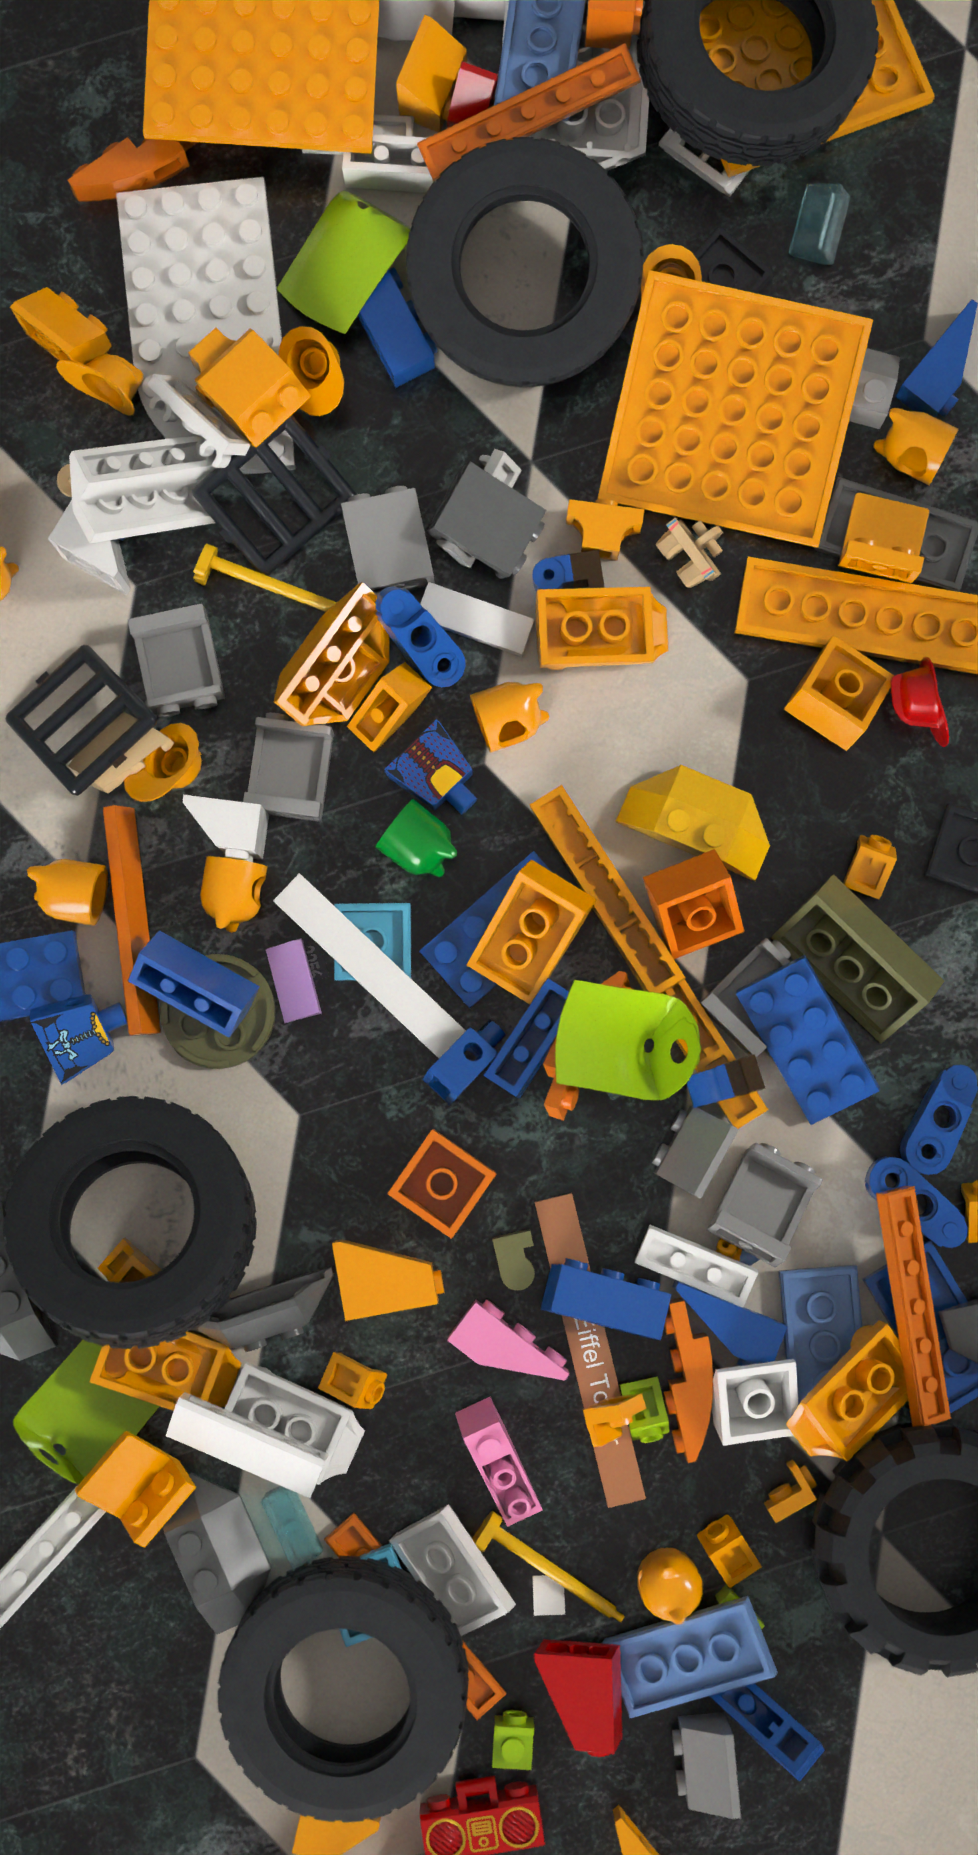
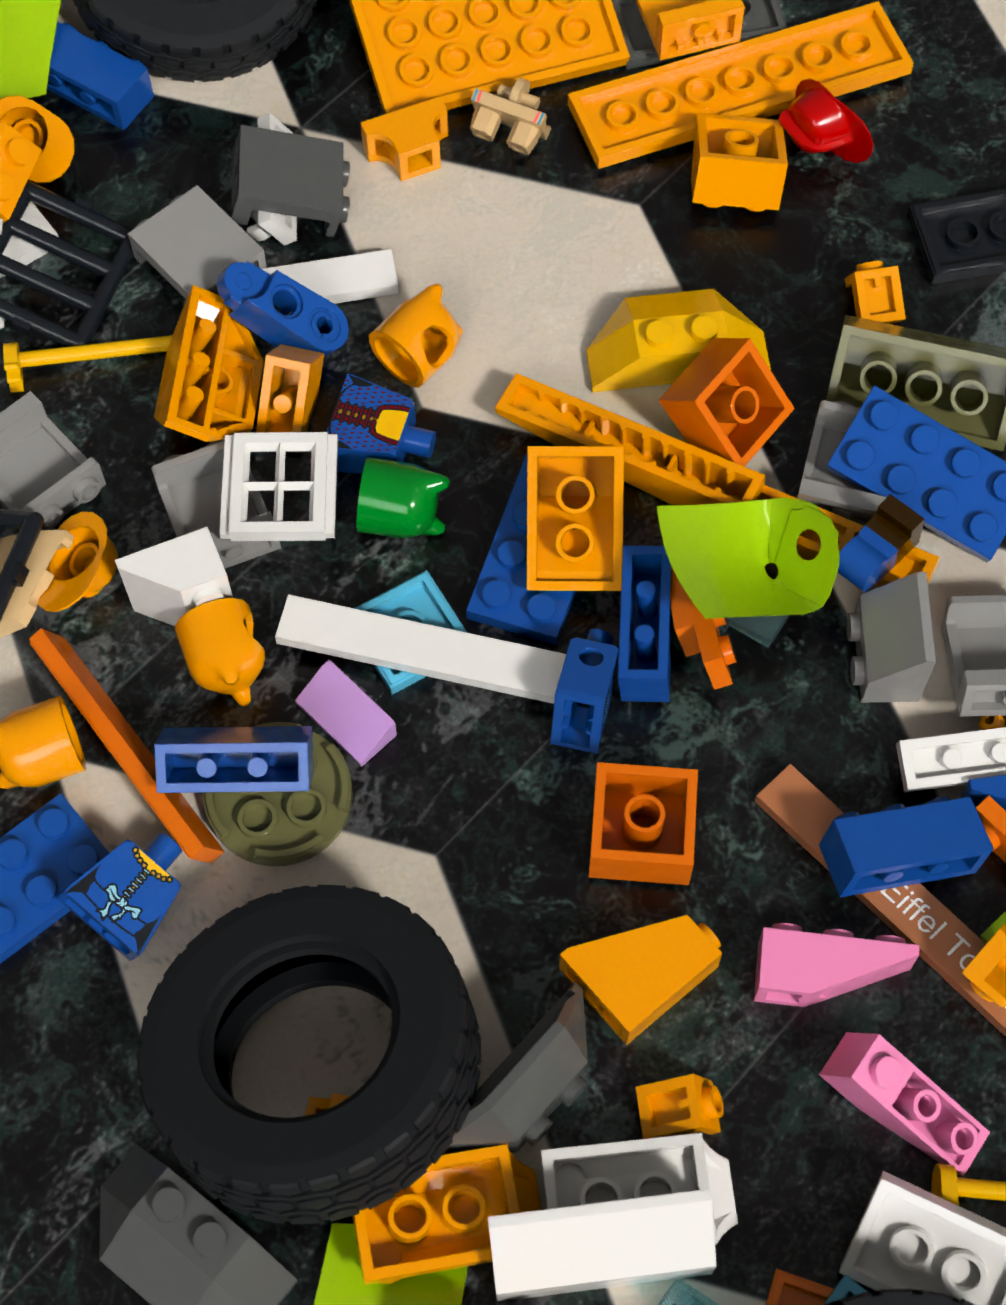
camera: 30 degrees left, 20 degrees down
(305, 772) = (321, 486): none -> white piece
(514, 1267) = (771, 868): olive leg -> none
(569, 571) = (402, 192): leg -> none
(599, 627) = (456, 222): light orange slope -> none

